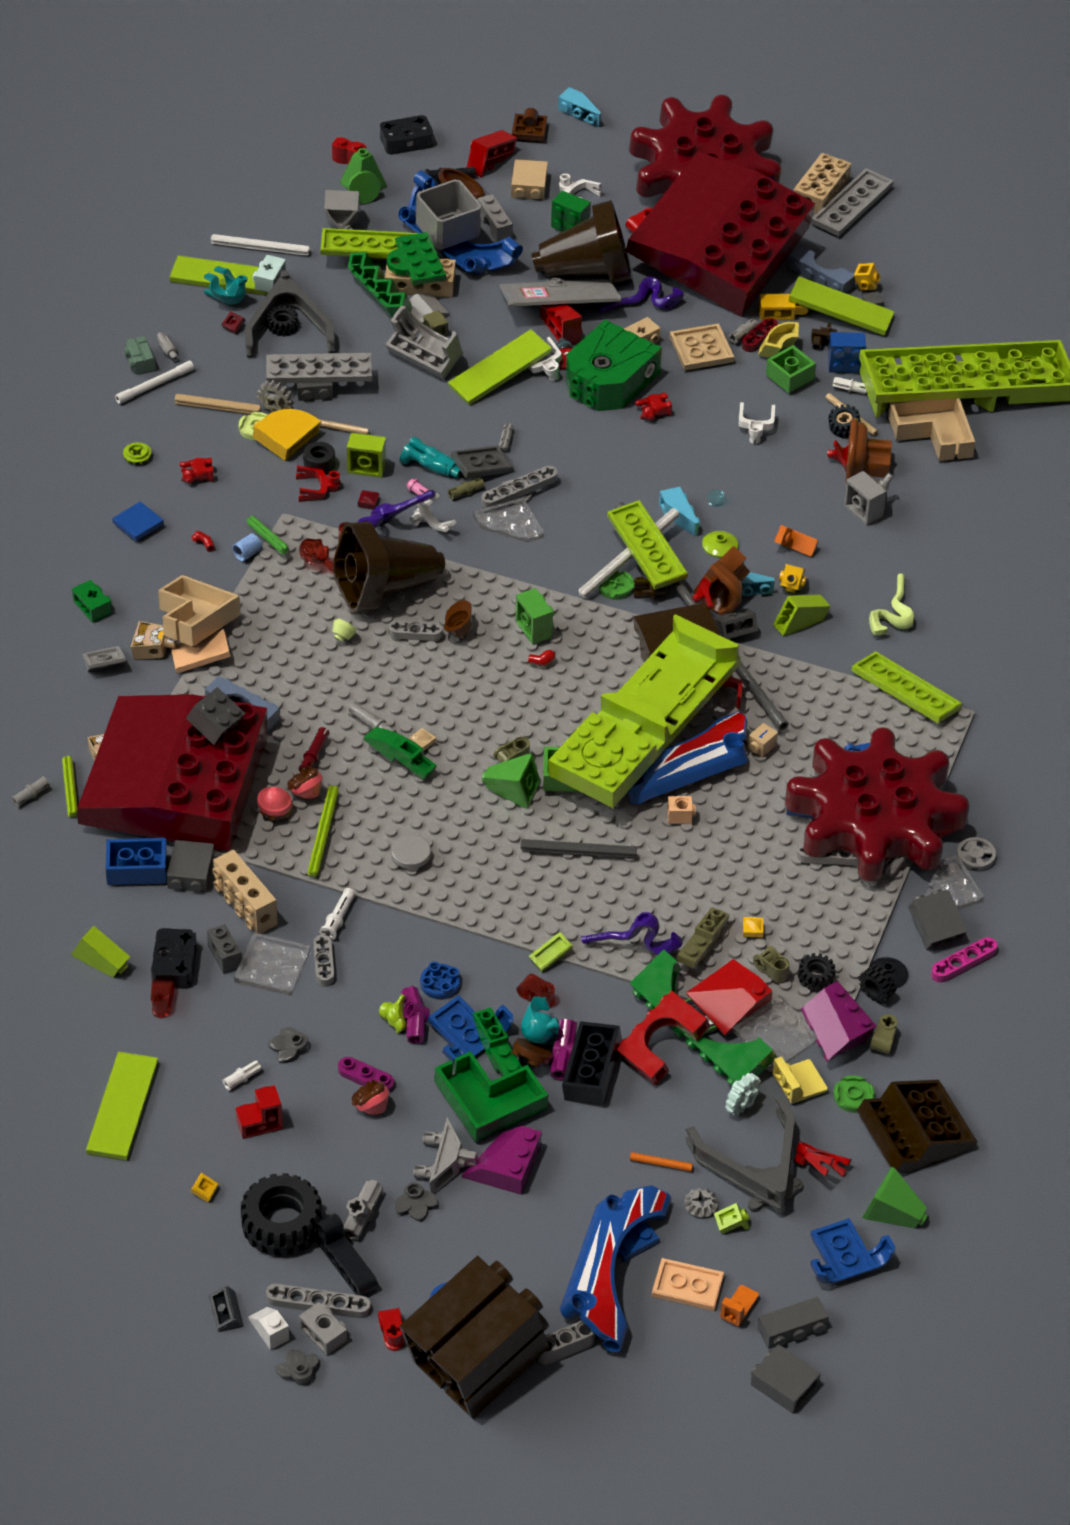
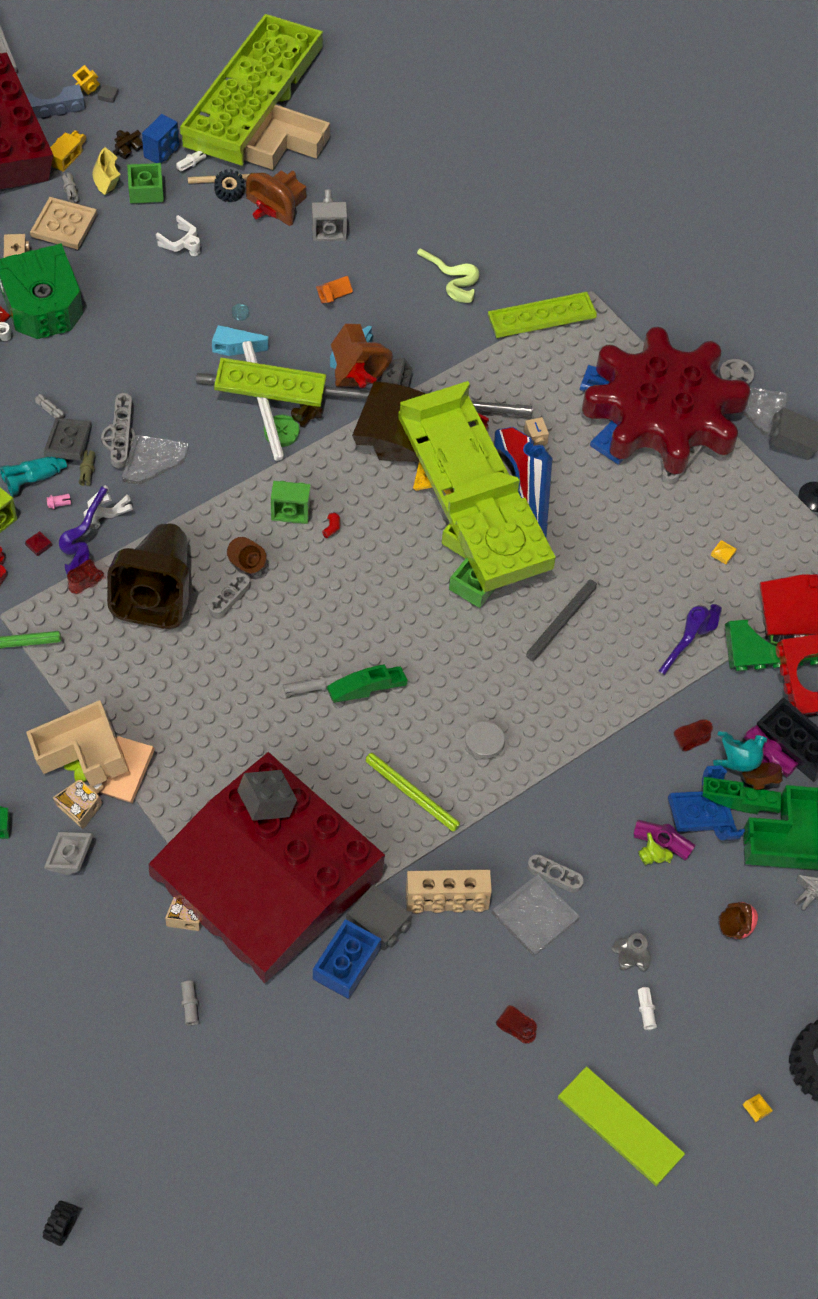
camera: 60 degrees left, 10 degrees up
(70, 789) = (206, 966): lime axle -> none
(101, 953) = (435, 1048): lime slope -> none
(174, 956) = (483, 985): black axle -> none
(224, 948) = (496, 943): dark grey brick -> none
(241, 695) = (196, 777): sand blue arch -> none
(247, 547) = (24, 664): light blue piece -> none
(262, 1116) = (708, 1013): red brick -> none
(274, 803) = (358, 810): coral hair -> none
(306, 783) = (352, 773): hair -> none
(311, 756) = (320, 753): dark red pin -> none
(315, 553) = (82, 615): clear red hair -> none
(334, 920) = (517, 839): white pin -> none
(343, 630) = (190, 646): yellowish green cone -> none
(356, 1070) = (699, 918): magenta plate -> none
(423, 738) = (359, 660): tan tile -> none
(440, 980) = (634, 799): blue tile -> none
(513, 749) = (427, 605): olive piece -> none
(514, 779) = (460, 621): bright green slope -> none
(551, 952) = (658, 702): lime tile -> none
(655, 406) = (106, 290): red animal -> none
(680, 810) = (571, 528): light nougat brick -> none
(704, 938) = (717, 590): olive slope -> none
(719, 543) = (291, 339): lime dish -> none
(762, 328) = (83, 175): dark red beam -> none
(773, 964) = (772, 560): olive piece -> none
(799, 578) = (375, 314): yellow brick -> none
(800, 612) = (416, 333): lime slope -> none
(820, 963) = (797, 546): black tyre -> none
(841, 305) = (102, 113): lime tile -> none

